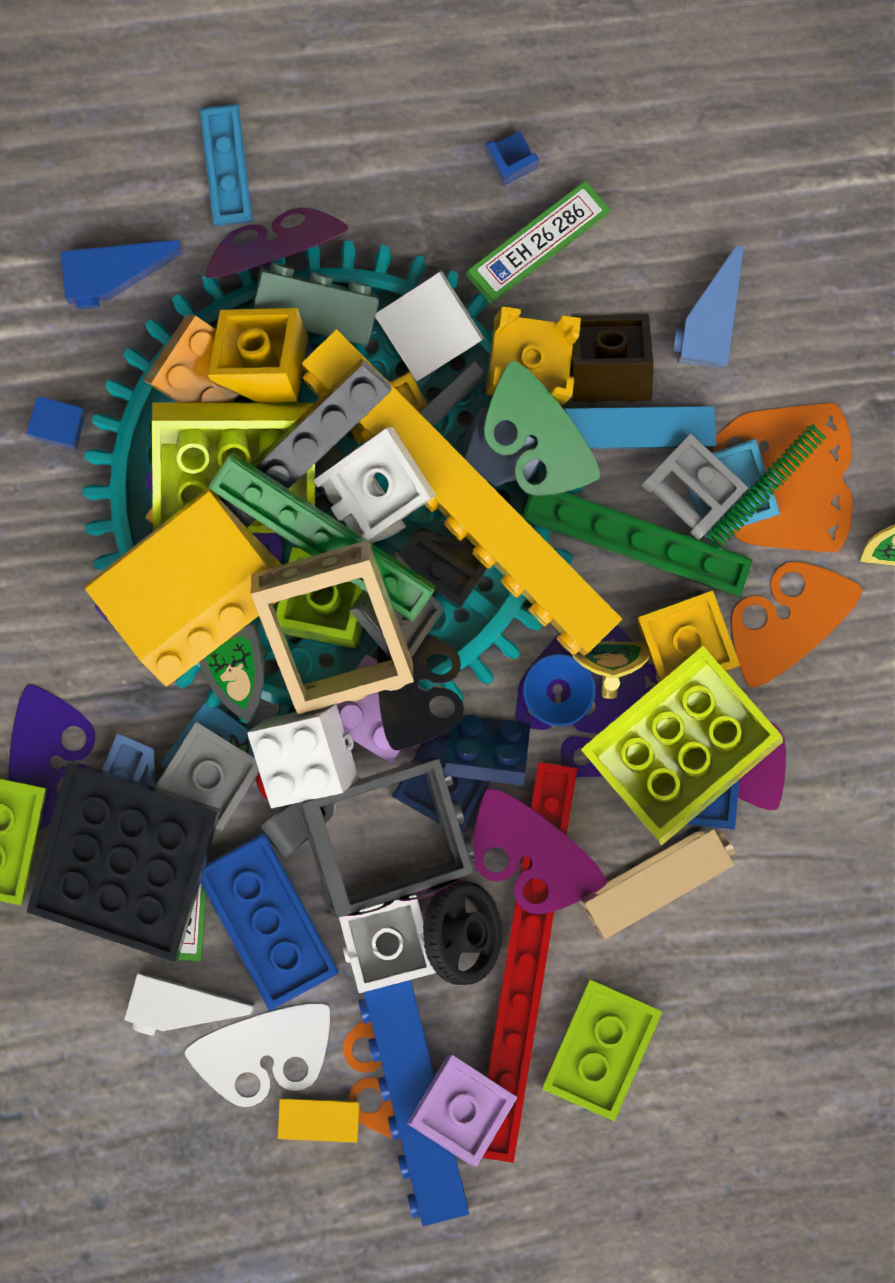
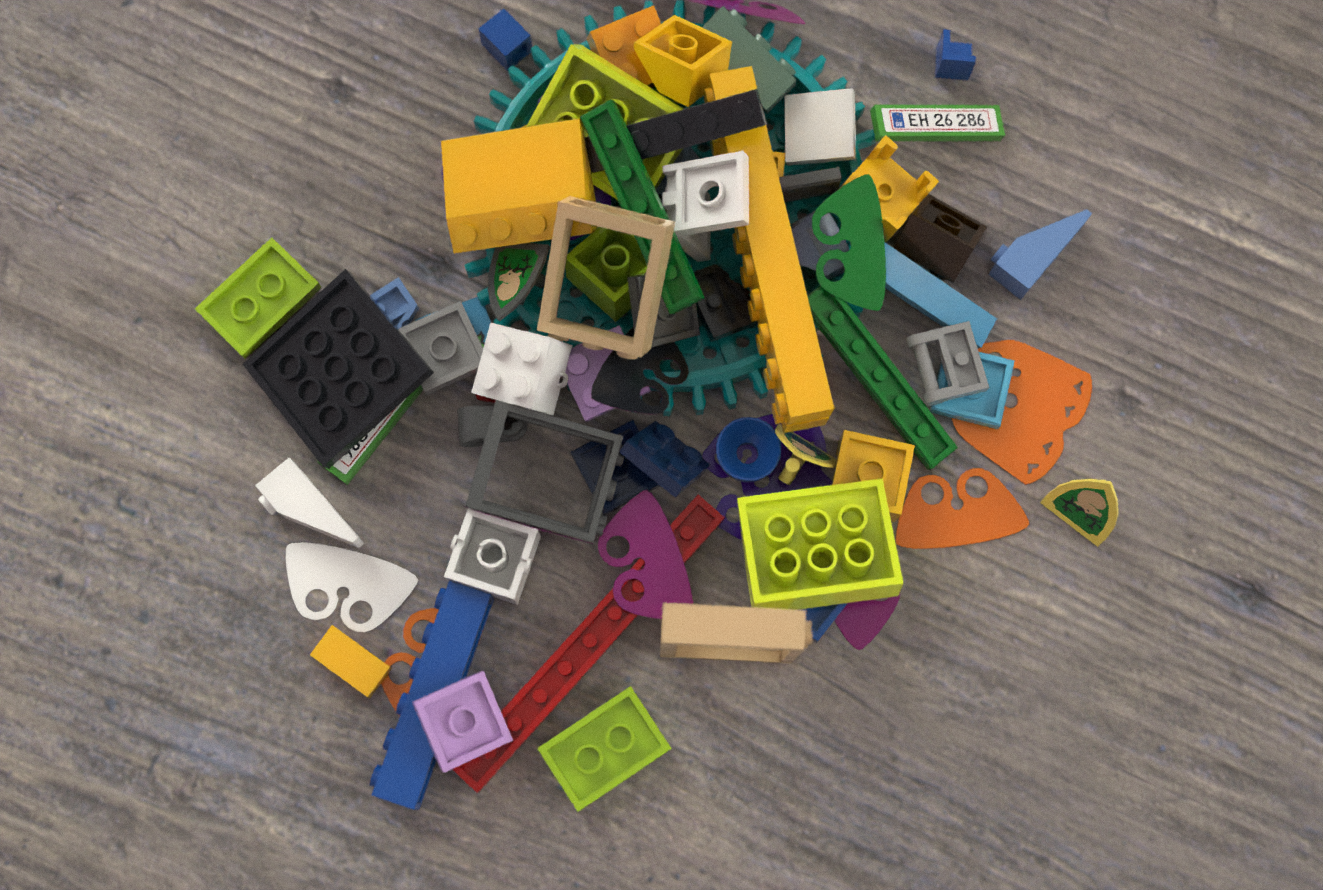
camera: 30 degrees right, 10 degrees down
(37, 739) = (342, 249): dark purple piece -> none
(267, 922) = (413, 485): blue tile -> none
(462, 932) = (554, 583): black wheel -> none
(719, 525) = (1040, 389): green piece -> none

